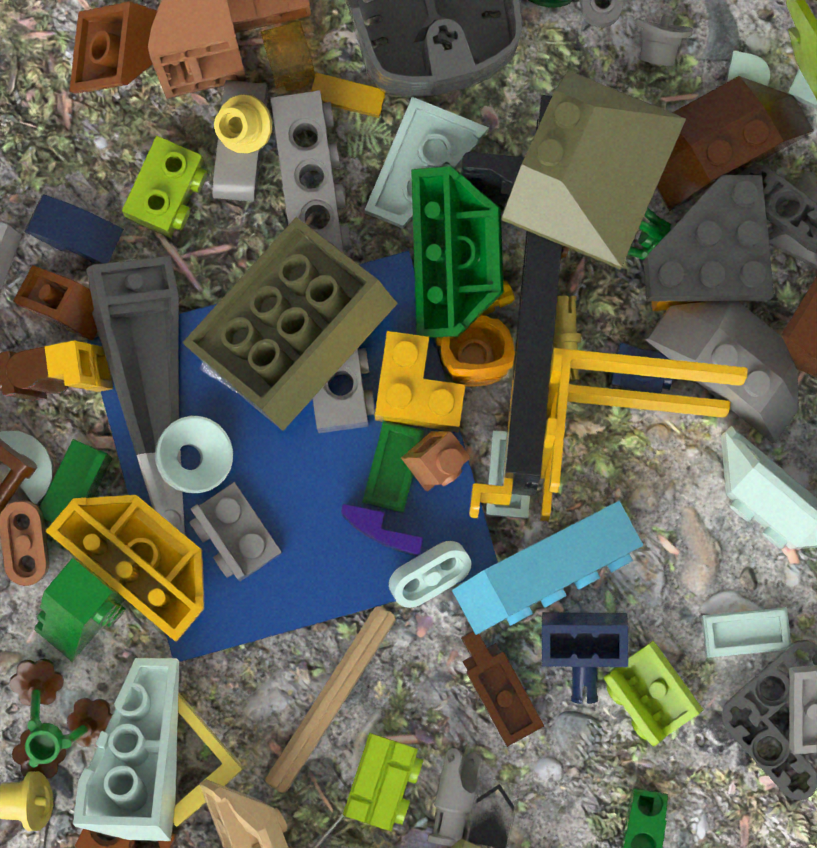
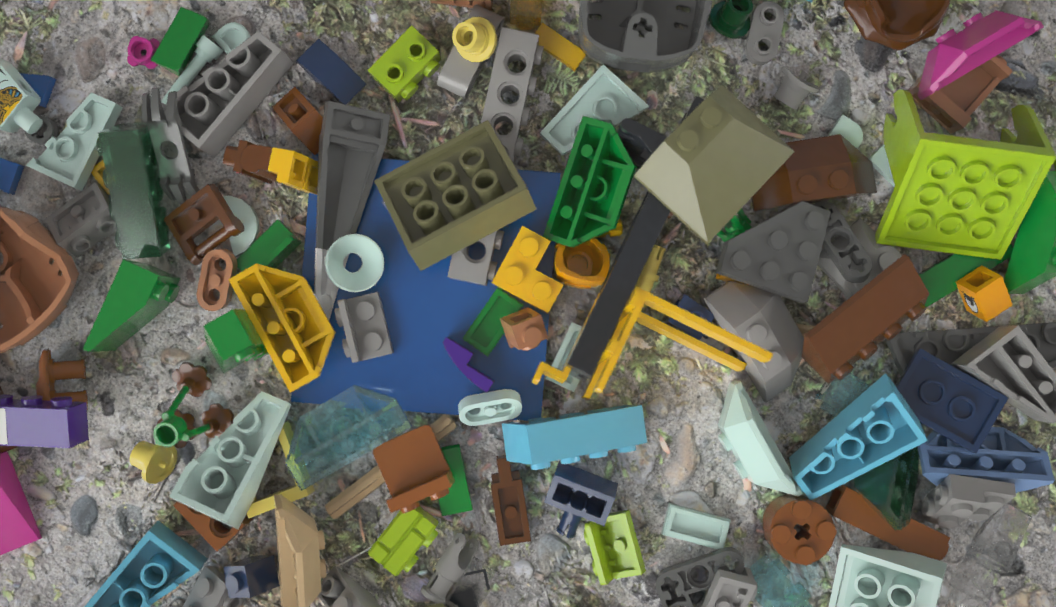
camera: 20 degrees right, 5 degrees up
(256, 672) = (342, 433): none -> clear light blue wedge
(361, 684) = (413, 468): none -> dark orange bracket
(413, 687) = (459, 498): none -> green slope

